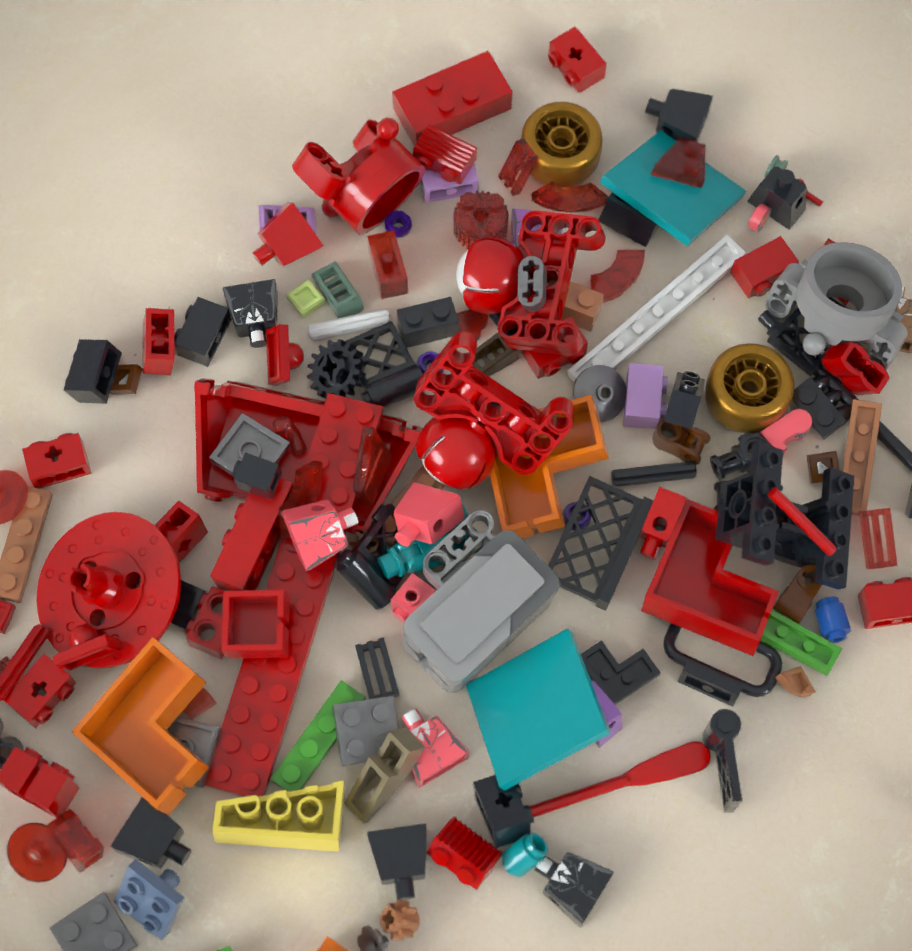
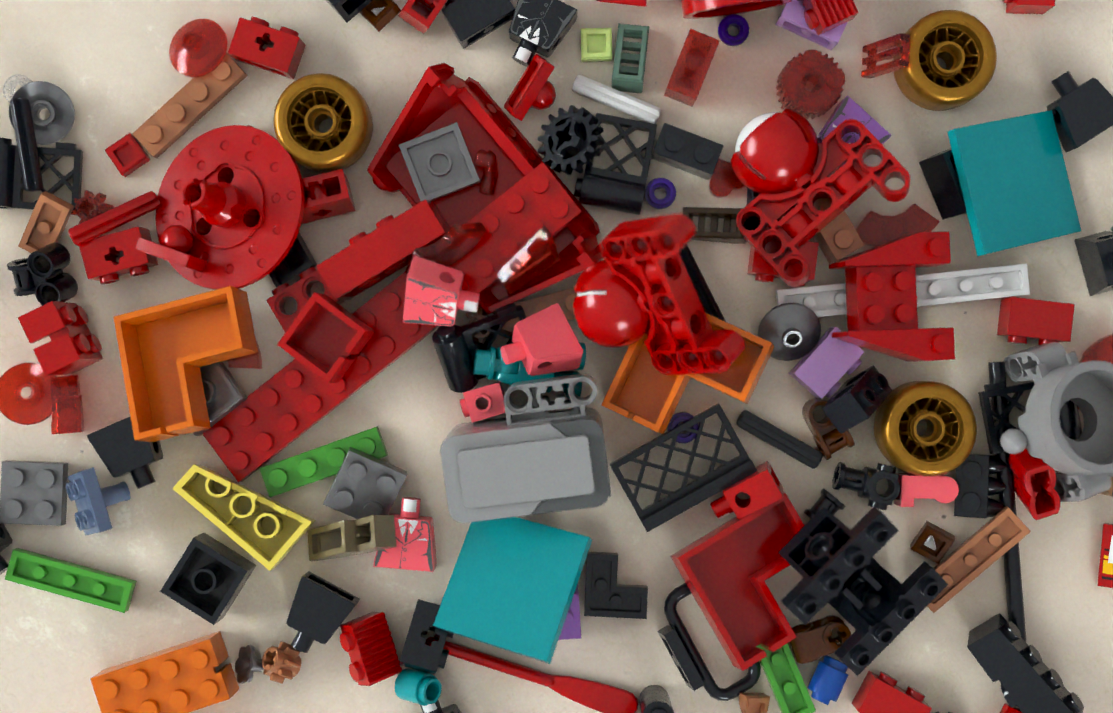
camera: 40 degrees right, 20 degrees up
(135, 461) = (310, 102): none -> pearl gold wheel
(257, 475) = (413, 207): black brick -> none
(290, 891) = (208, 578): none -> black brick
(371, 646) = (403, 464): black tile -> none
(538, 283) = (795, 191): flat silver beam -> none
(569, 199) = (911, 120): clear red tile -> none
(649, 321) = (884, 298): none -> red wedge
(683, 163) = (1044, 165): clear red wing -> none
(759, 217) = (1071, 267): coral tile -> none
(802, 521) = (861, 605): red bar -> none
(889, 536) = (939, 620): clear red tile -> none

